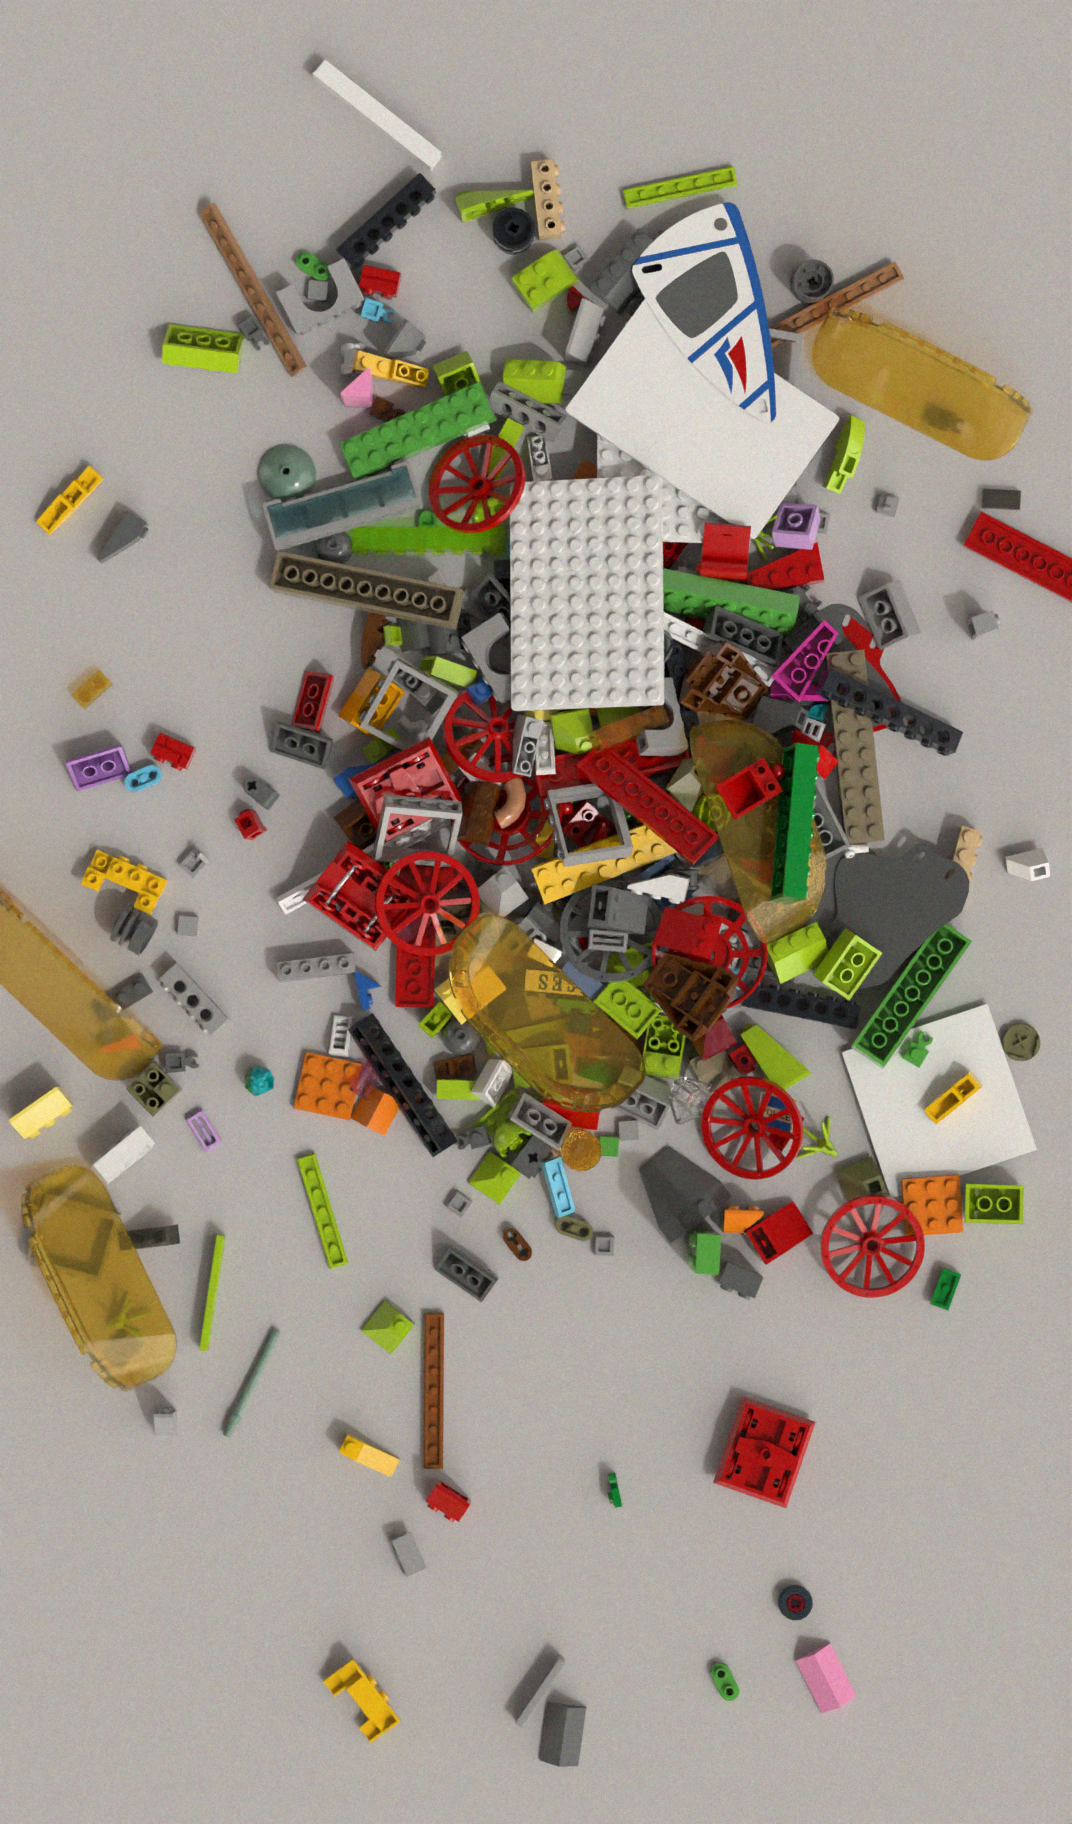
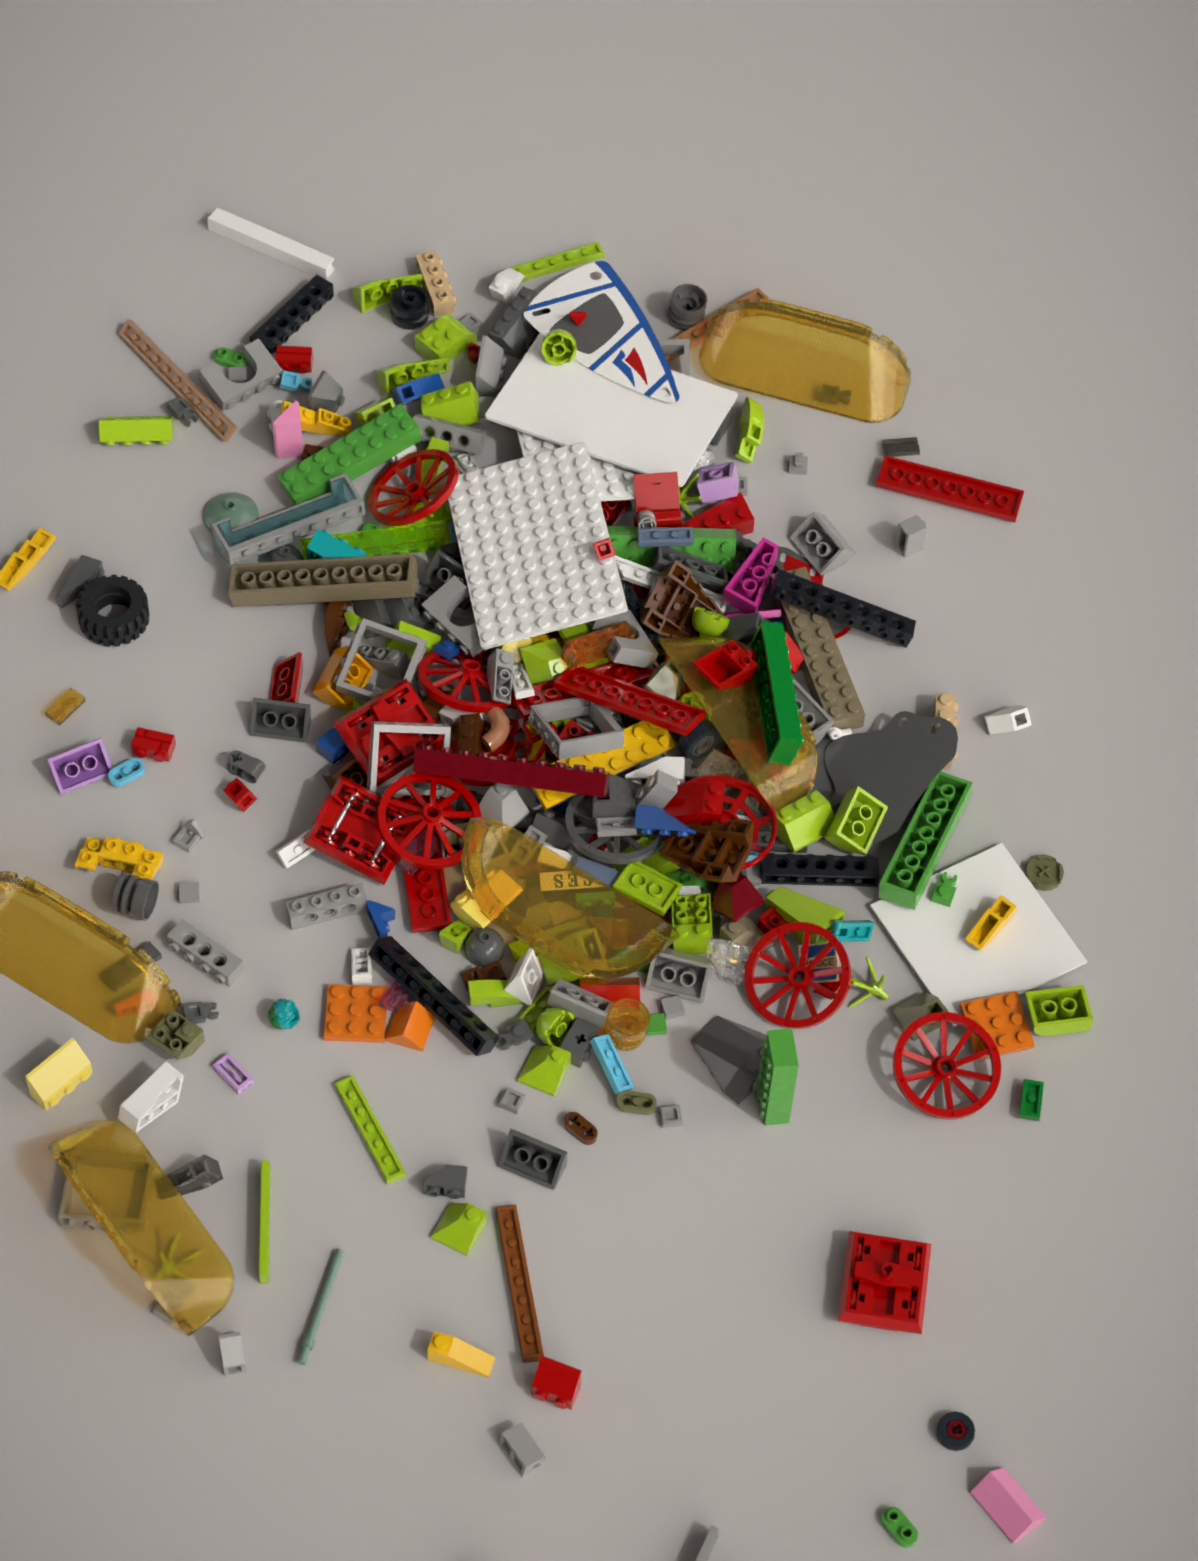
camera: 15 degrees left, 30 degrees down
(133, 566) = (112, 629): none -> black tyre
(382, 559) = (325, 547): none -> teal slope
(387, 1281) = (447, 1181): none -> dark grey slope
(488, 323) = (399, 374): none -> lime wedge
(504, 346) = (413, 390): none -> blue slope
(513, 876) = (511, 771): none -> dark red brick
(614, 1495) = (735, 1349): green plate -> none
(623, 214) = (505, 284): none -> white slope
(649, 950) = (655, 819): none -> blue slope
(652, 629) = (604, 549): none -> slope
(653, 917) = (657, 790): none -> light grey piece
(659, 331) = (558, 347): none -> lime cylinder
(689, 286) = (578, 317): none -> red slope
(708, 579) = (646, 517): none -> light grey wheel
(723, 602) = (665, 537): none -> sand blue tile
(739, 1220) = (811, 1060): orange slope -> none
(739, 1279) = (819, 1117): dark grey brick -> none
(751, 704) = (708, 622): none -> lime cylinder
(778, 1232) = (845, 1074): red slope -> none
(814, 1086) = (852, 930): none -> teal plate

